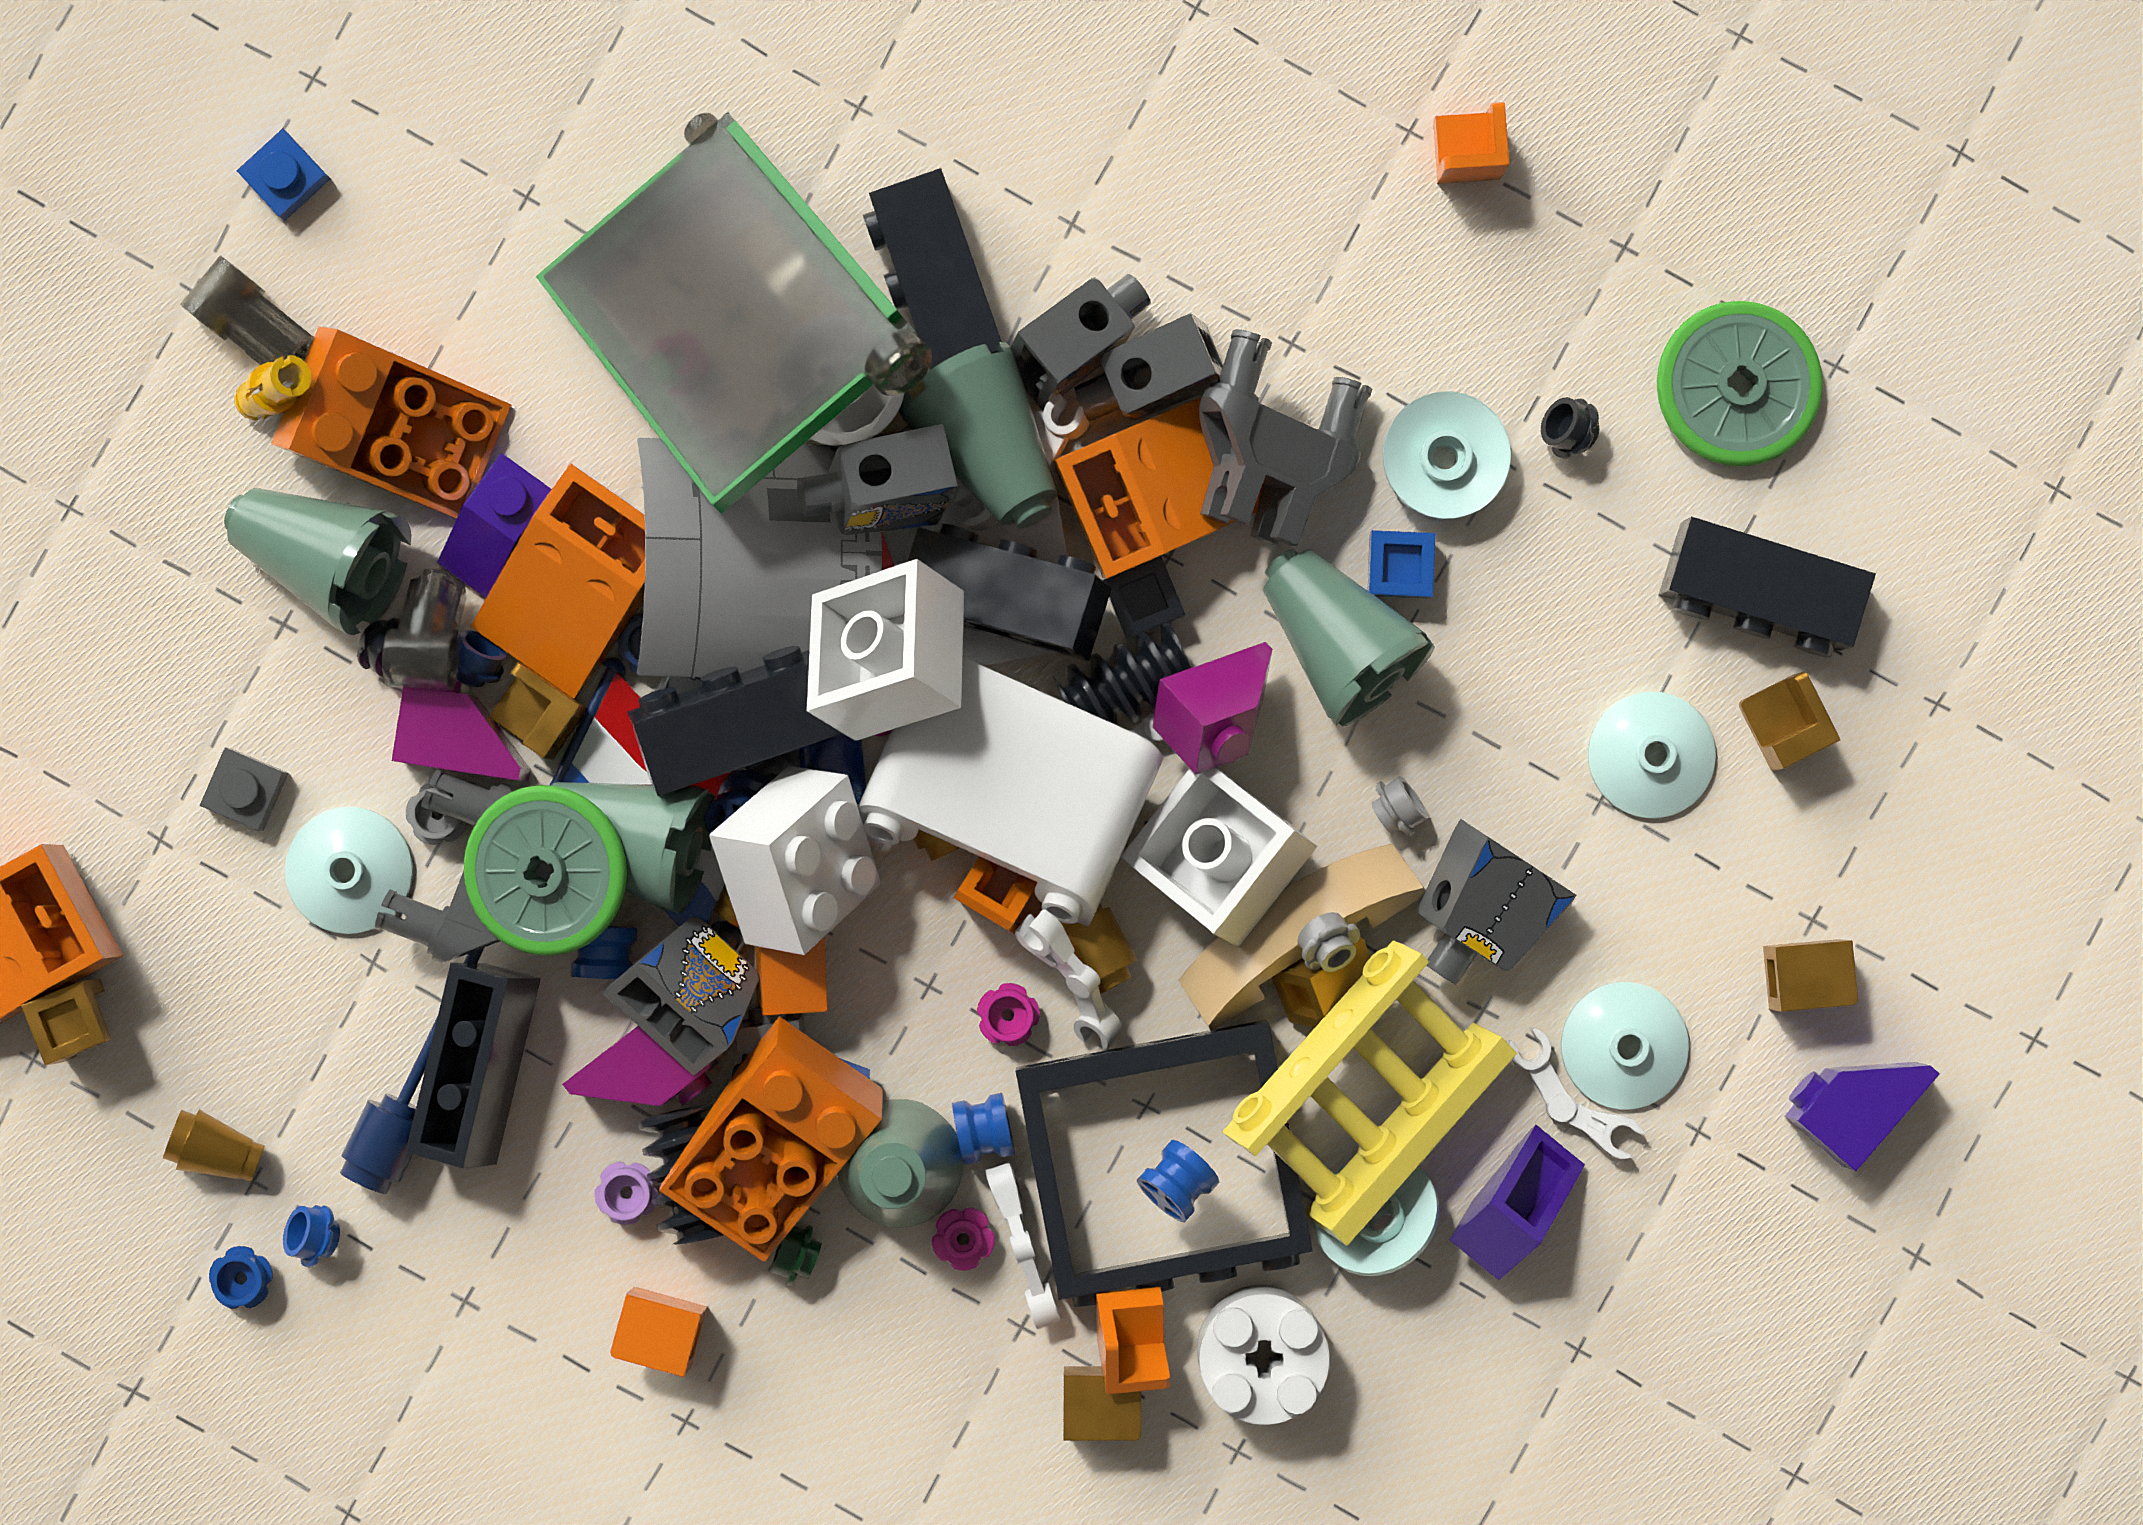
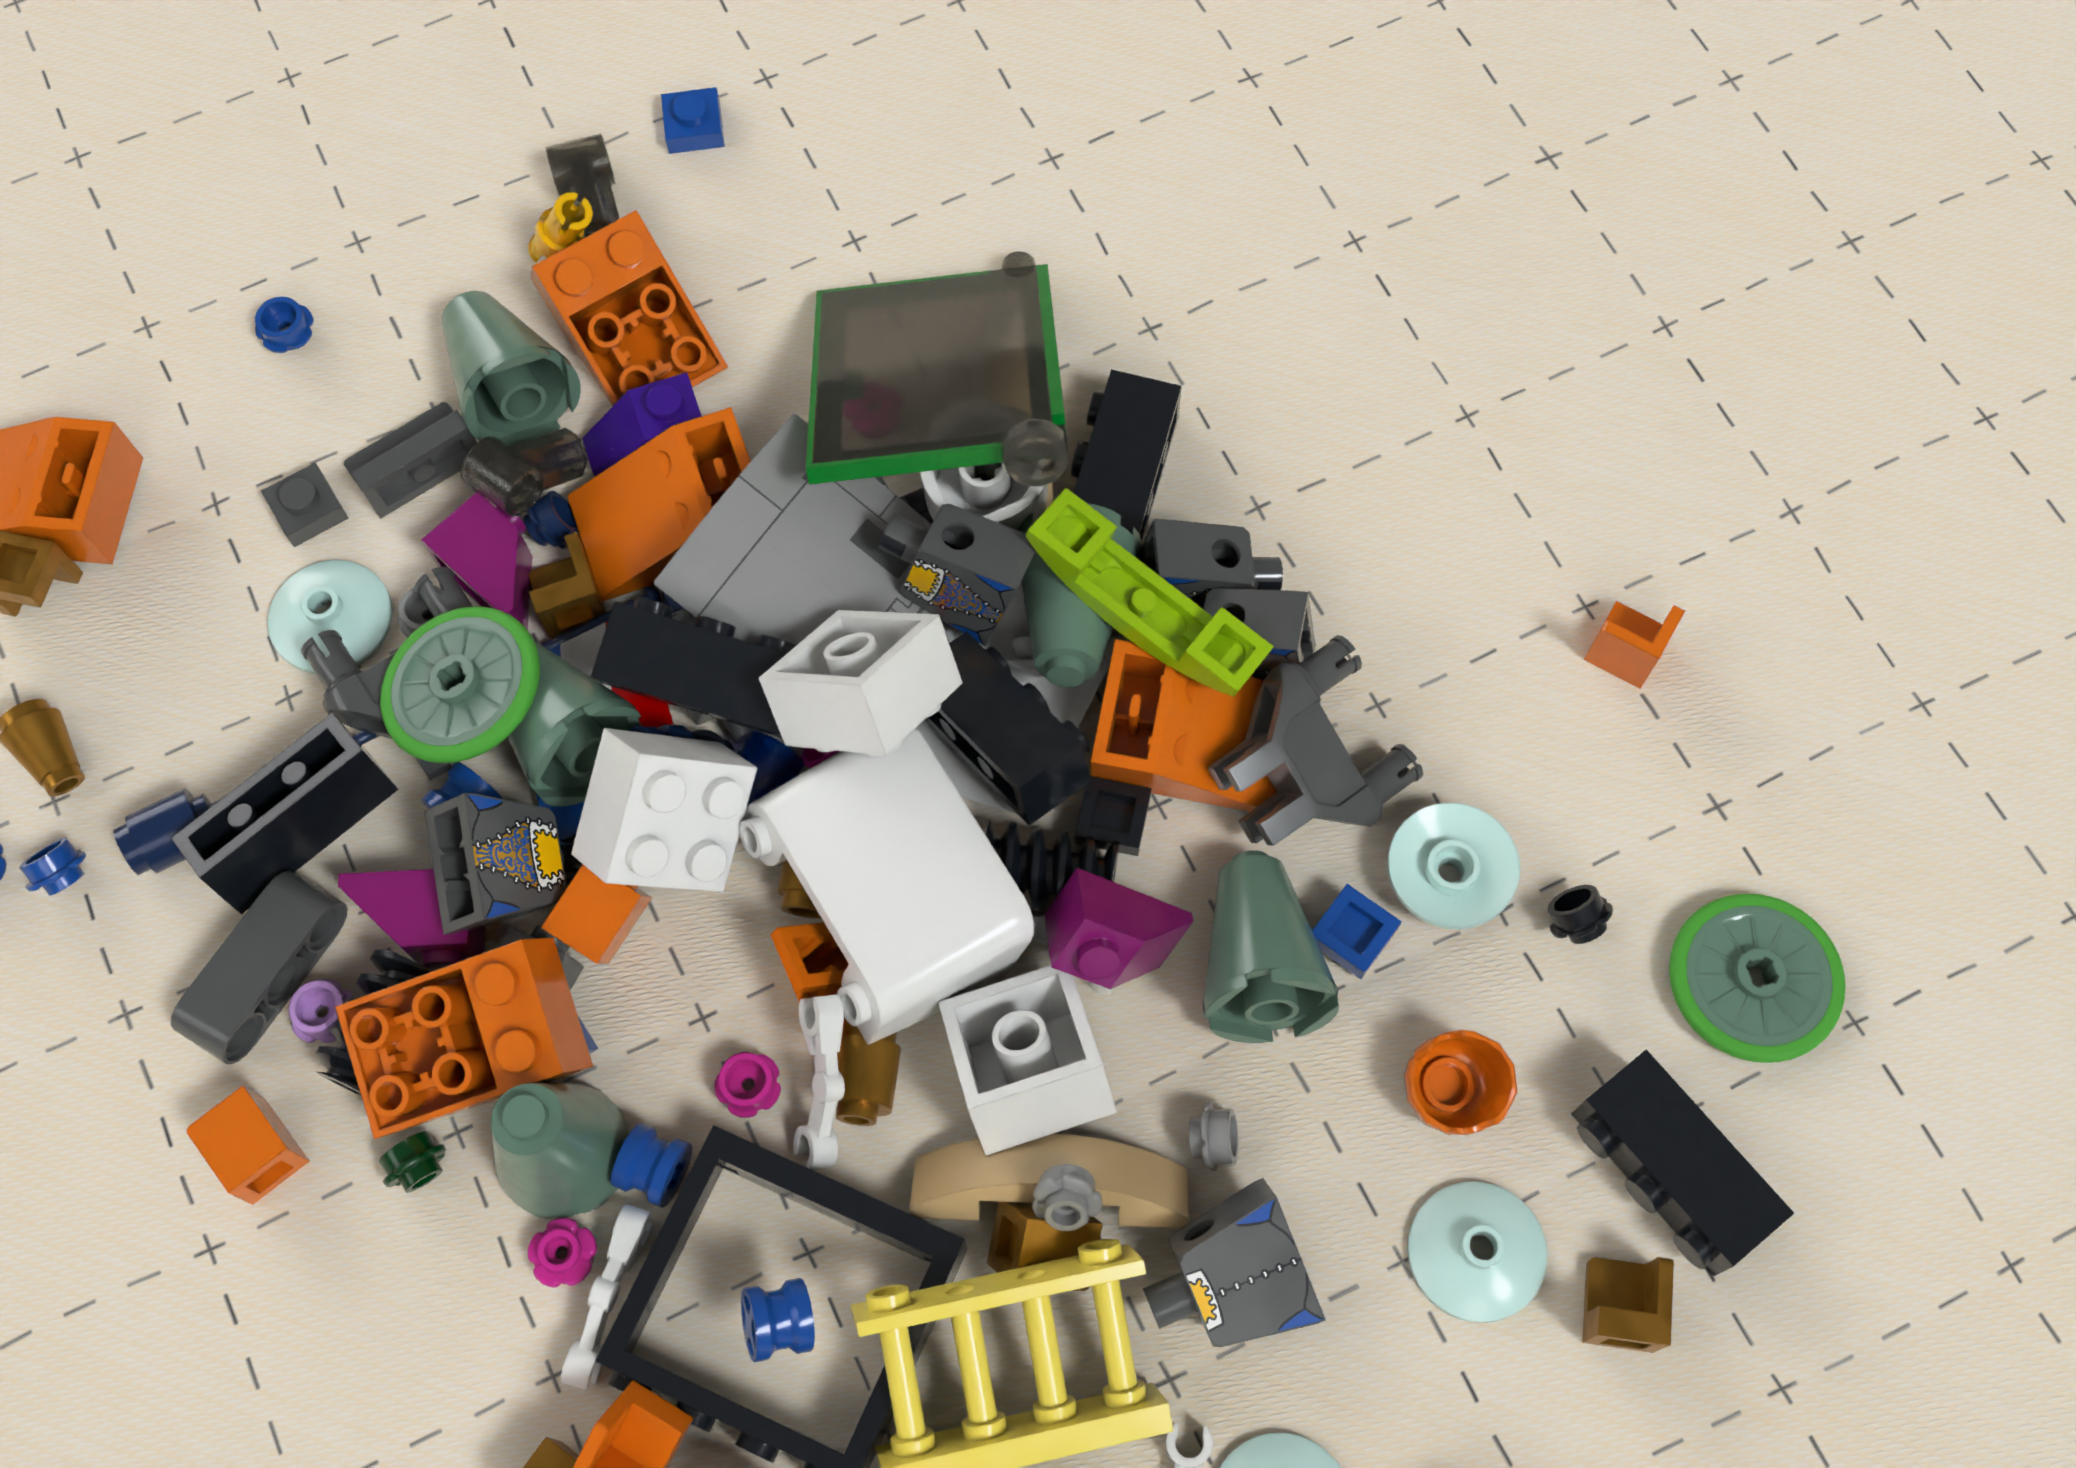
camera: 35 degrees right, 20 degrees down
(65, 639) = (278, 314): none -> blue plate
(300, 682) = (411, 459): none -> dark grey panel
(549, 1193) = (259, 967): none -> dark grey beam
(1064, 416) = (1140, 602): none -> lime slope
(1562, 637) = (1460, 1082): none -> orange hair

